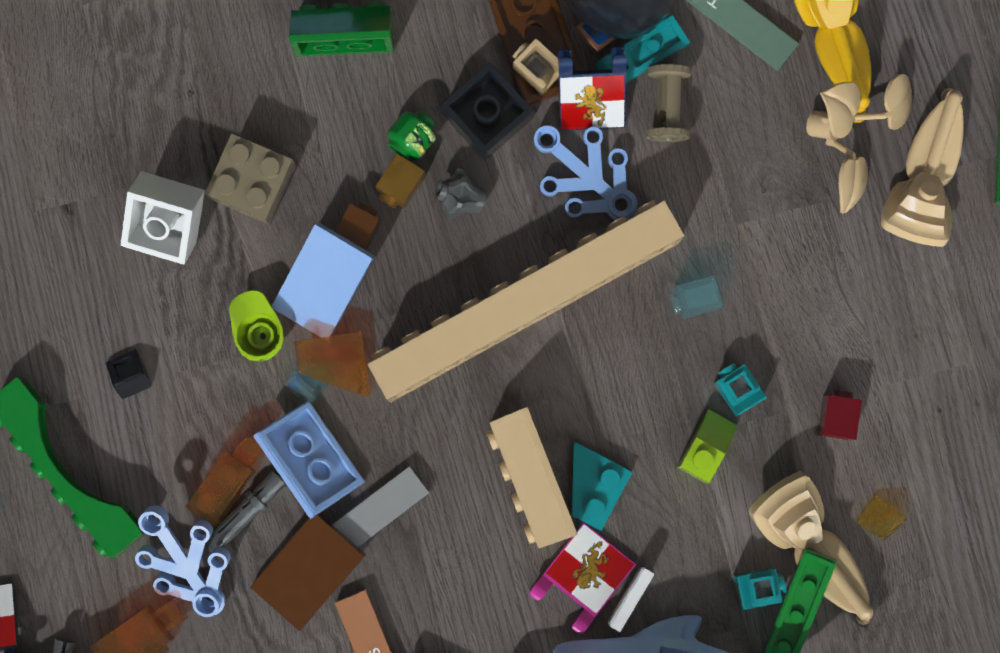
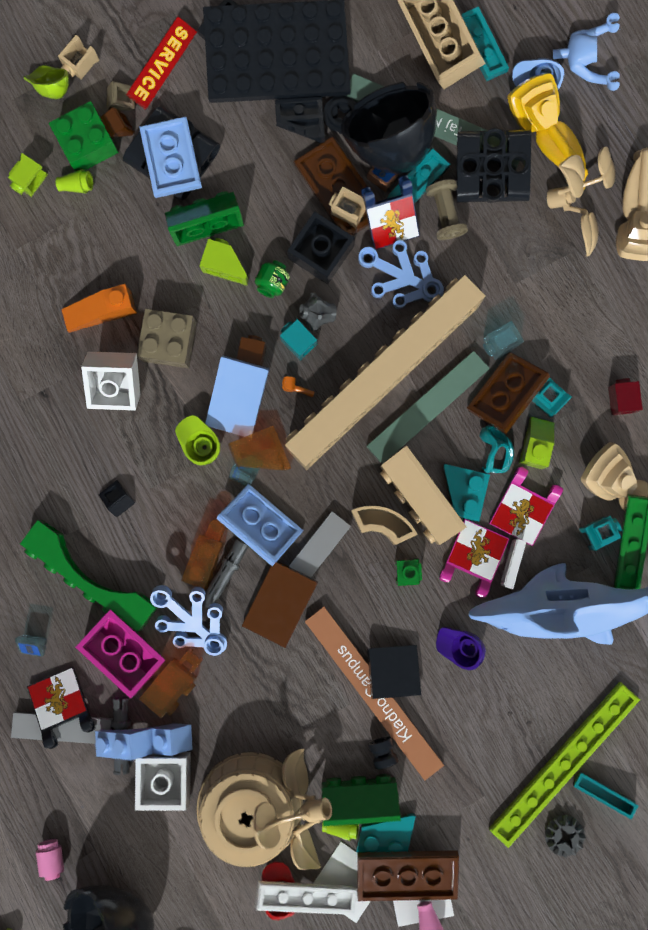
camera: 10 degrees left, 0 degrees up
(81, 582) = (120, 654): none -> dark pink slope
(171, 115) = (99, 308): none -> orange slope
(351, 94) = (222, 262): none -> lime slope
(397, 283) = (289, 386): none -> orange hand
(399, 182) = (272, 313): pearl gold brick -> none
(424, 224) = (298, 339): none -> teal brick
(474, 499) = (385, 522): none -> tan brick
(488, 574) = (408, 572): none -> green window
(574, 361) = (427, 407): none -> sand green tile
(652, 426) = (497, 439): none -> teal piece
(663, 532) = (523, 511): none -> flag
(685, 369) = (508, 392): none -> reddish brown tile
(719, 30) = (517, 149): none -> black connector

